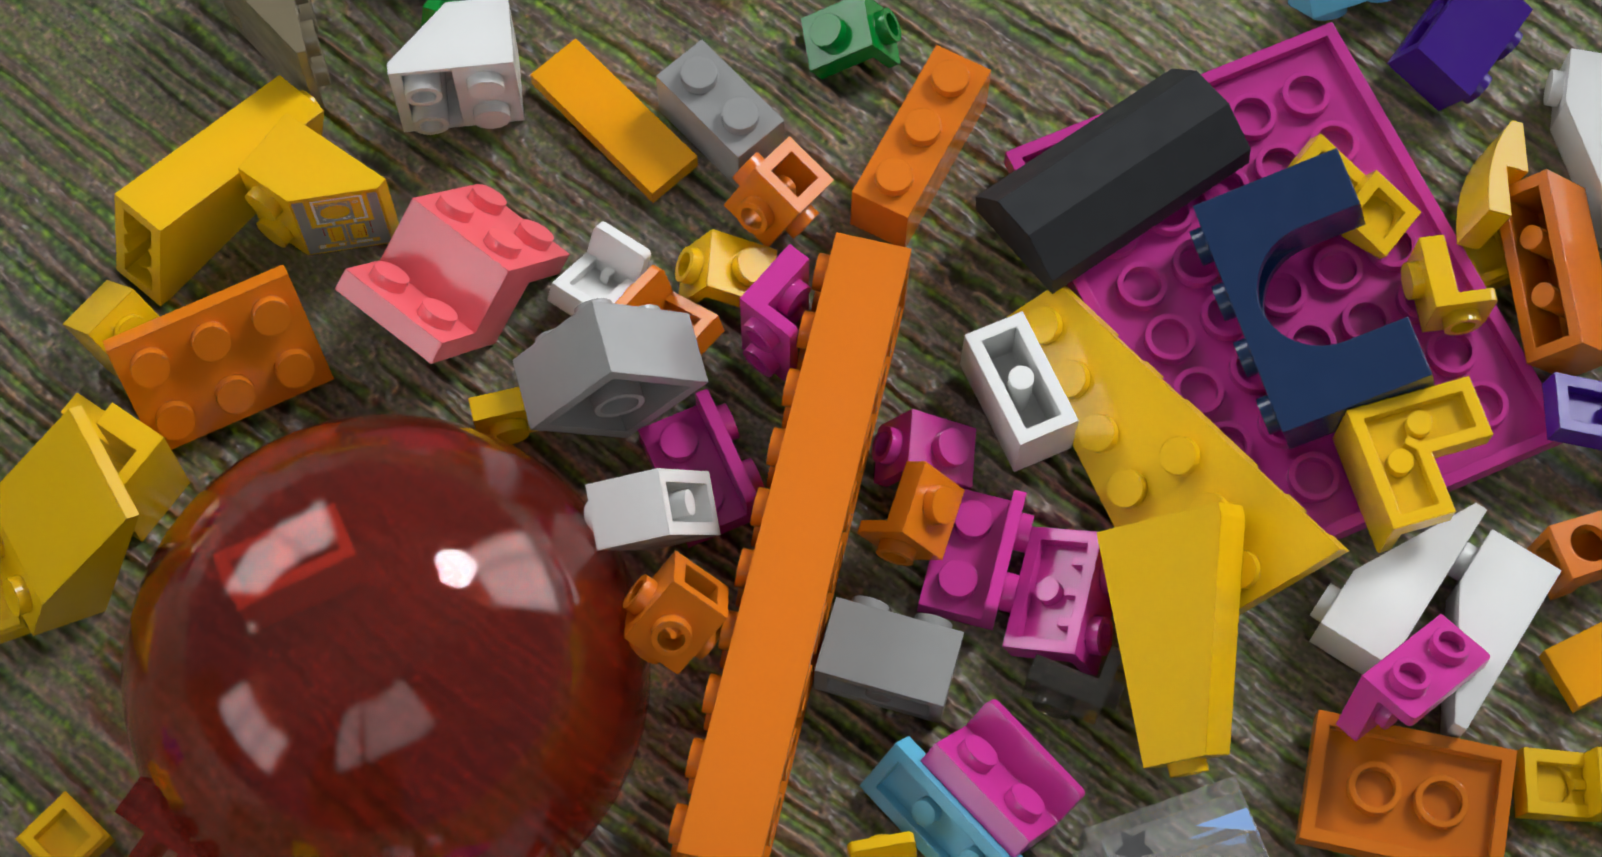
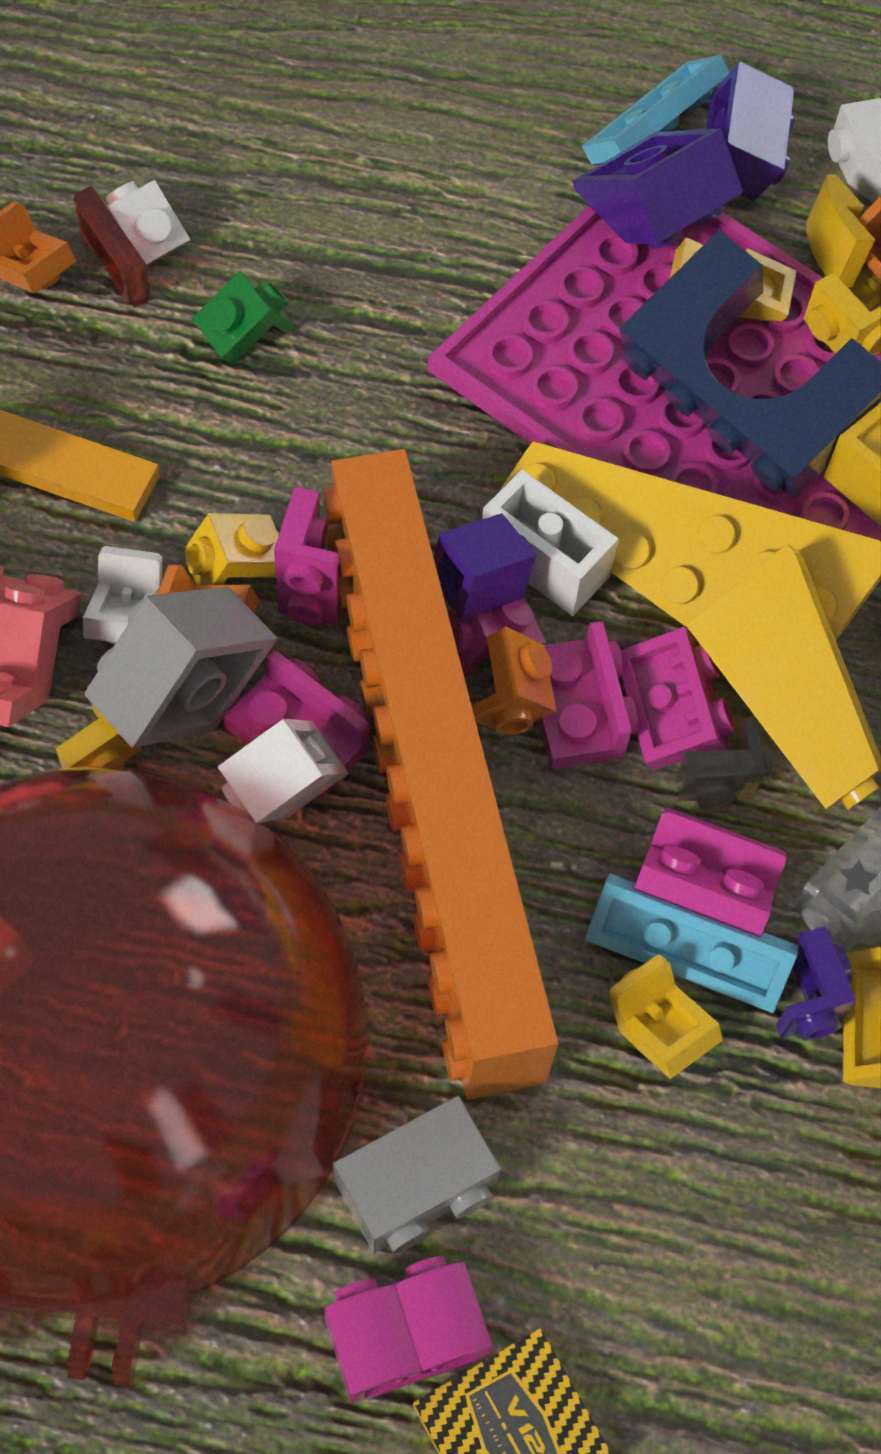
camera: 30 degrees left, 5 degrees down
(675, 613) = (356, 850): orange brick -> none
(717, 110) = (162, 419): light grey brick -> none
(778, 192) = (250, 462): orange brick -> none
(888, 657) = (561, 814): light grey brick -> none
(920, 147) = (352, 374): orange brick -> none
(935, 391) = (483, 565): none -> dark purple brick
(1116, 177) = (536, 335): black piece -> none
(1327, 66) = (662, 185): none -> dark purple slope

